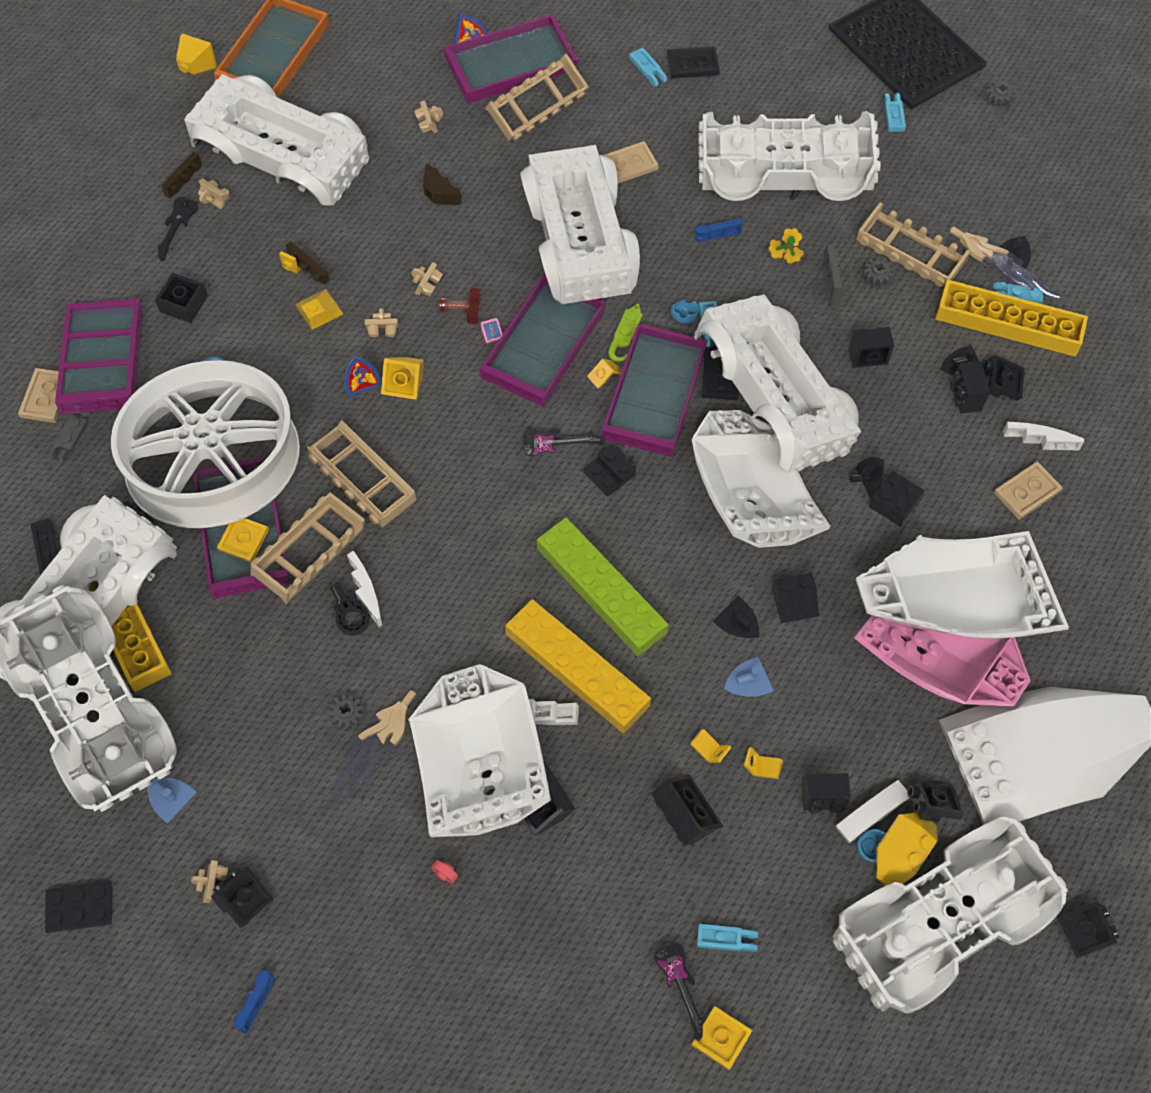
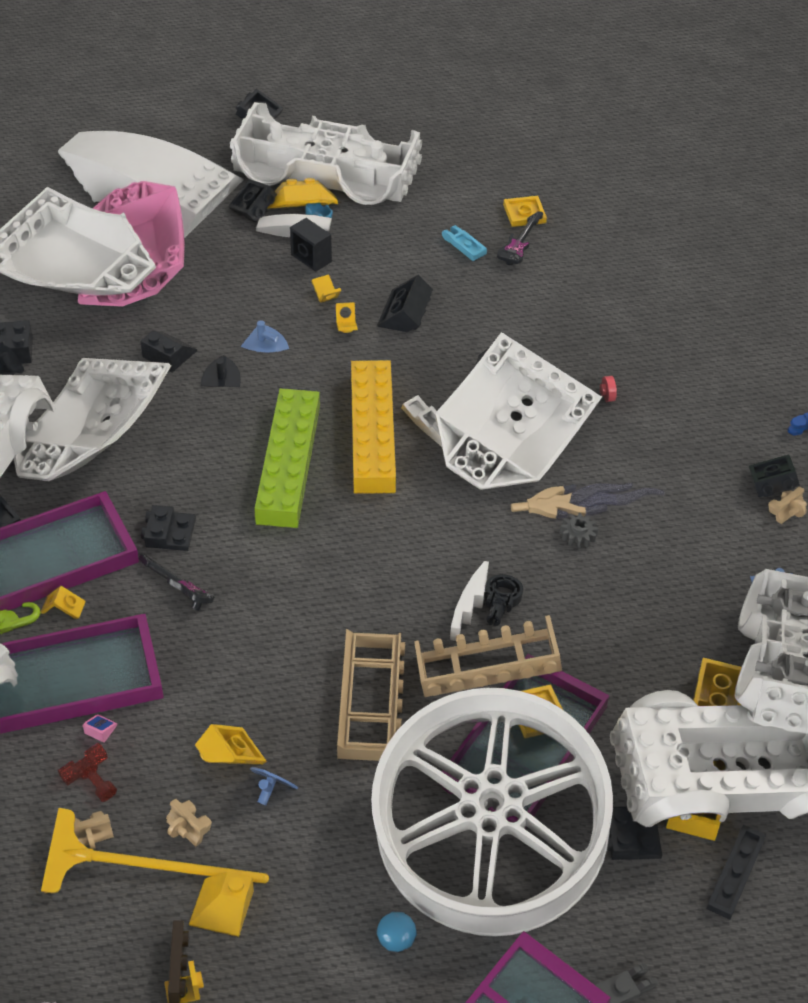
camera: 135 degrees left, 15 degrees down
(418, 256) = (68, 851): none -> yellow piece

